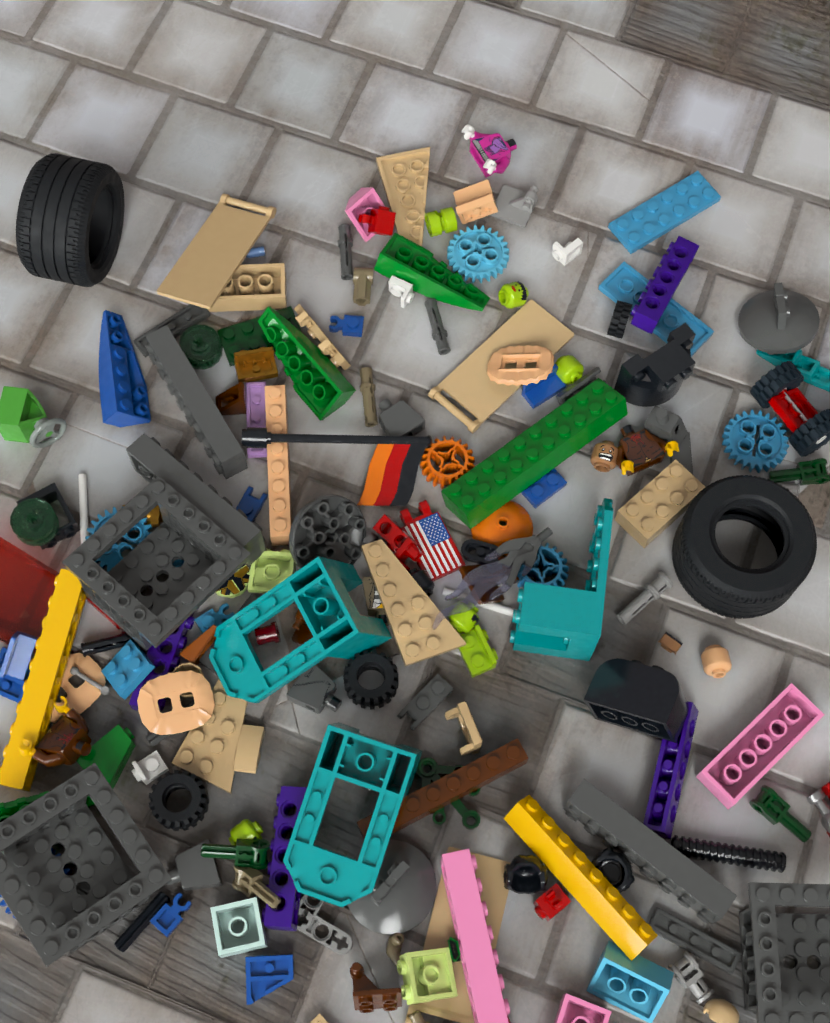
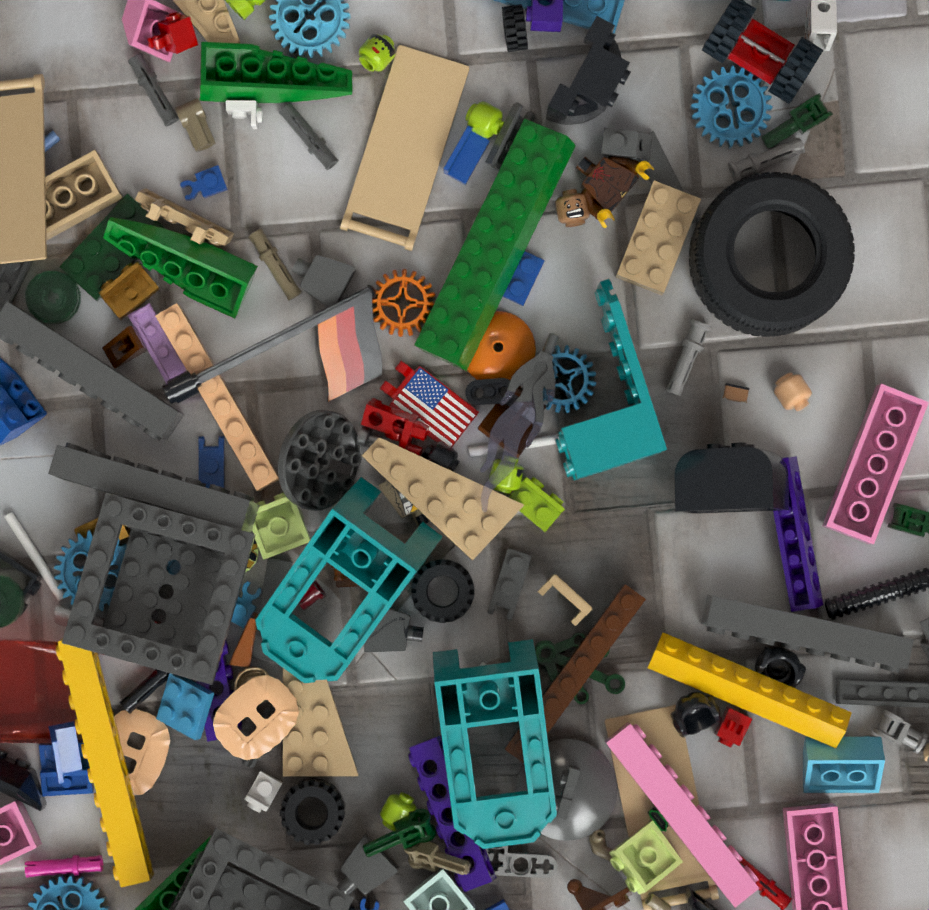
camera: 20 degrees left, 20 degrees up
(63, 741) = (163, 812): torso -> none
(104, 689) = (172, 737): light grey hinge -> none
(110, 754) = (215, 803): green slope -> none
(248, 749) = (354, 723): tan slope -> none
(521, 356) = (424, 130): light nougat piece -> none

